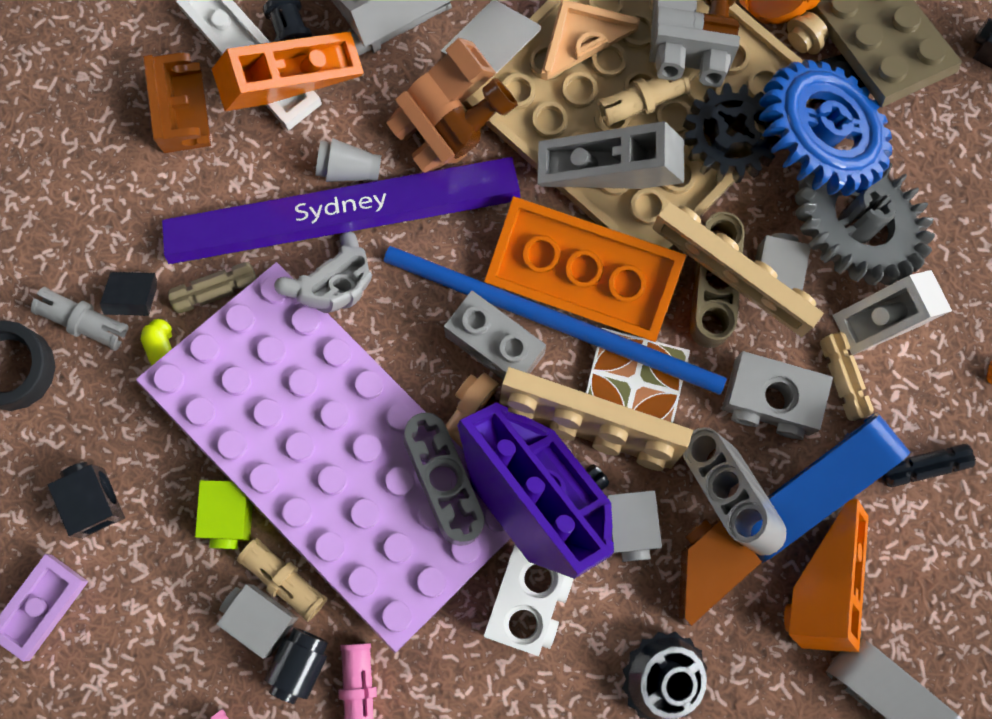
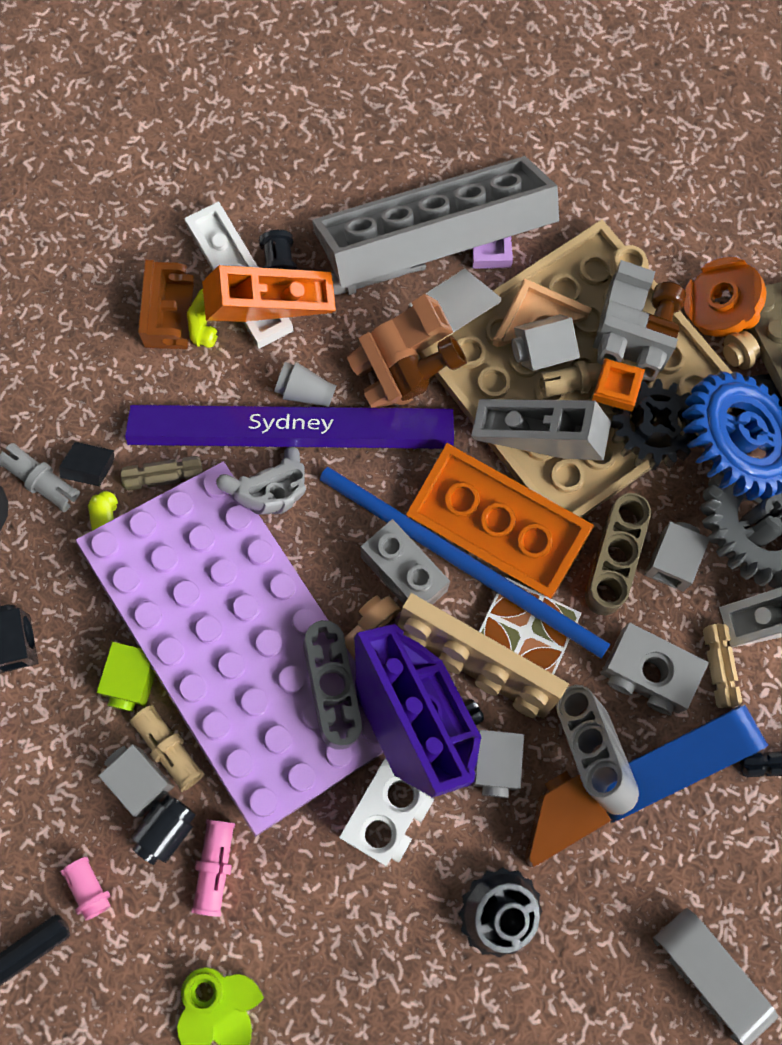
camera: 10 degrees right, 5 degrees down
(215, 116) = (198, 330): none -> neon yellow arm
(598, 66) = (545, 342): none -> light grey brick
(685, 98) = (618, 385): none -> orange tile
(752, 279) = (648, 557): tan plate -> none
(830, 589) = (672, 858): orange slope -> none

